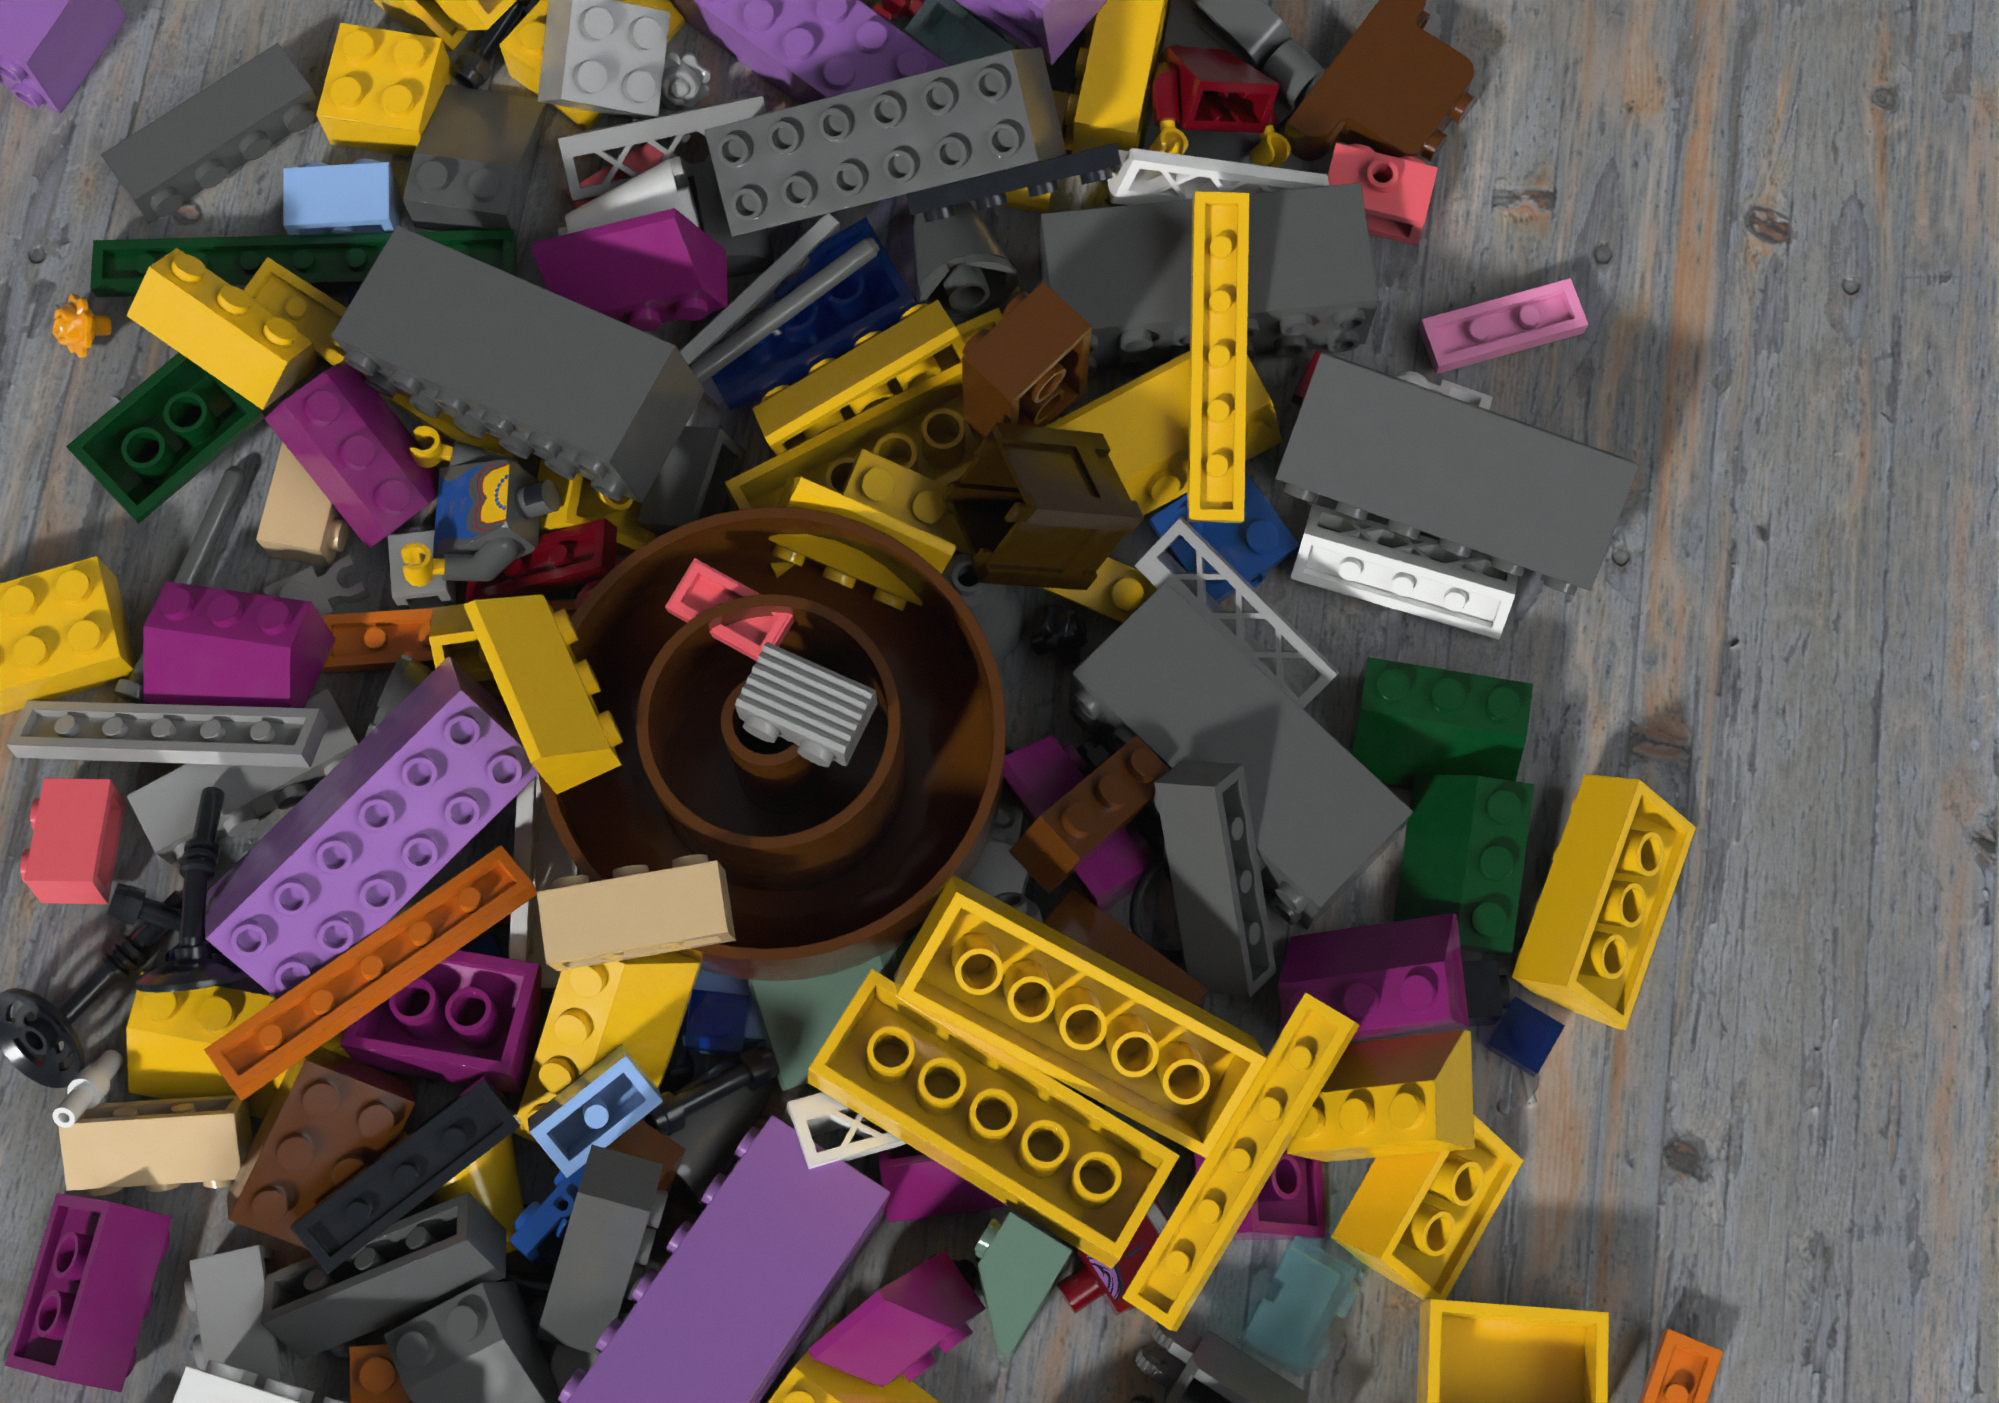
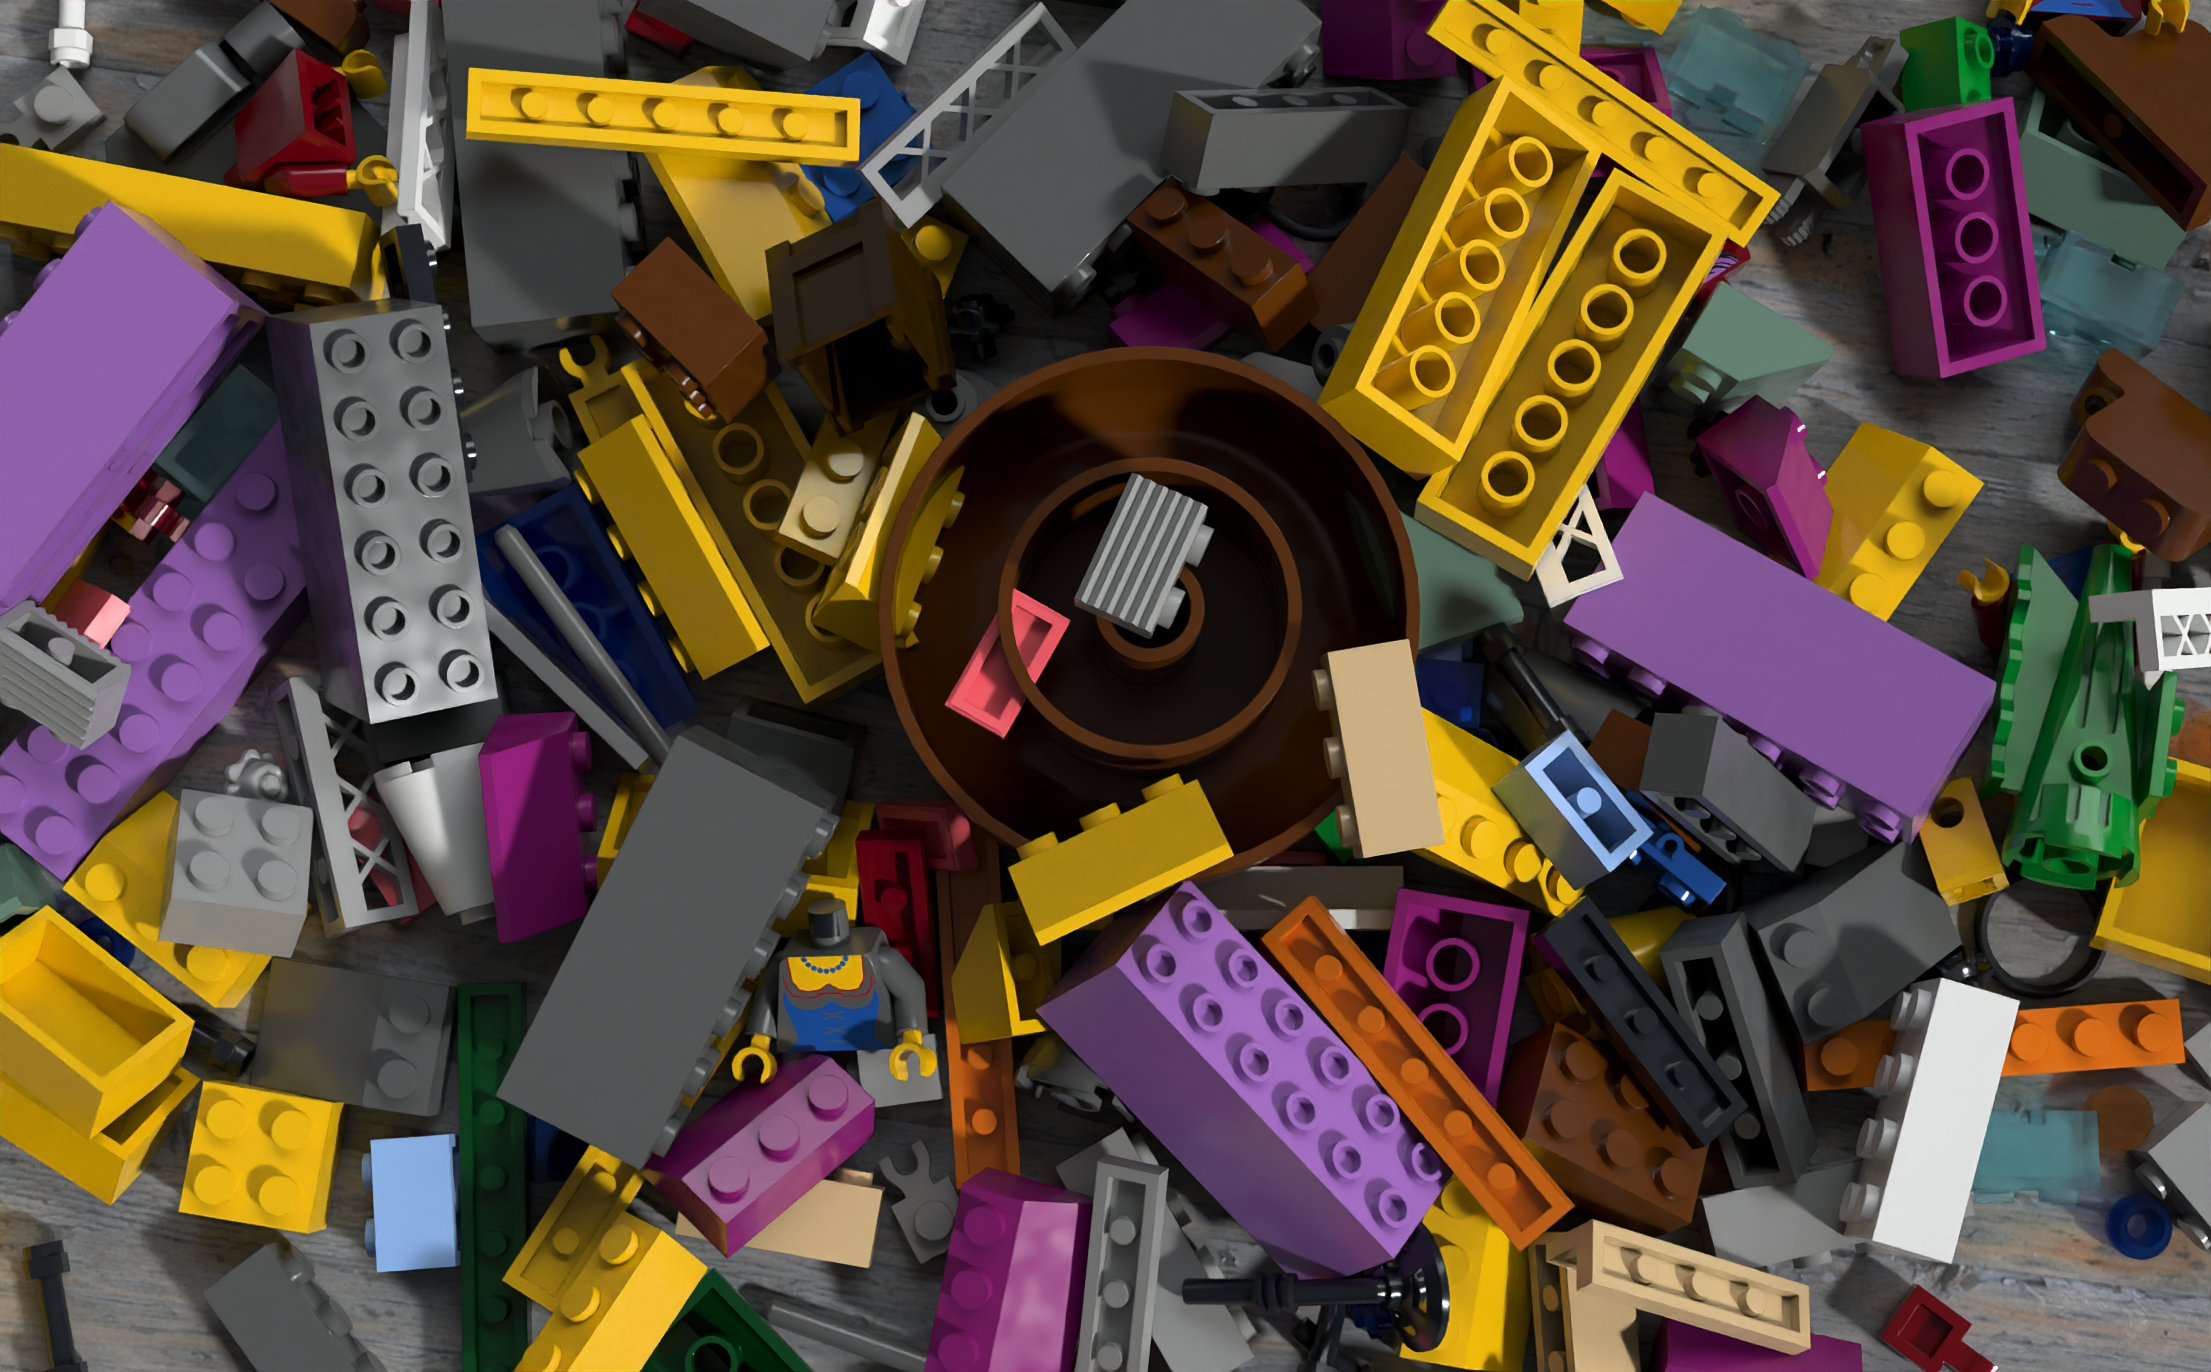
camera: 90 degrees left, 10 degrees up
(172, 1219) = (1685, 1285): none -> tan fence

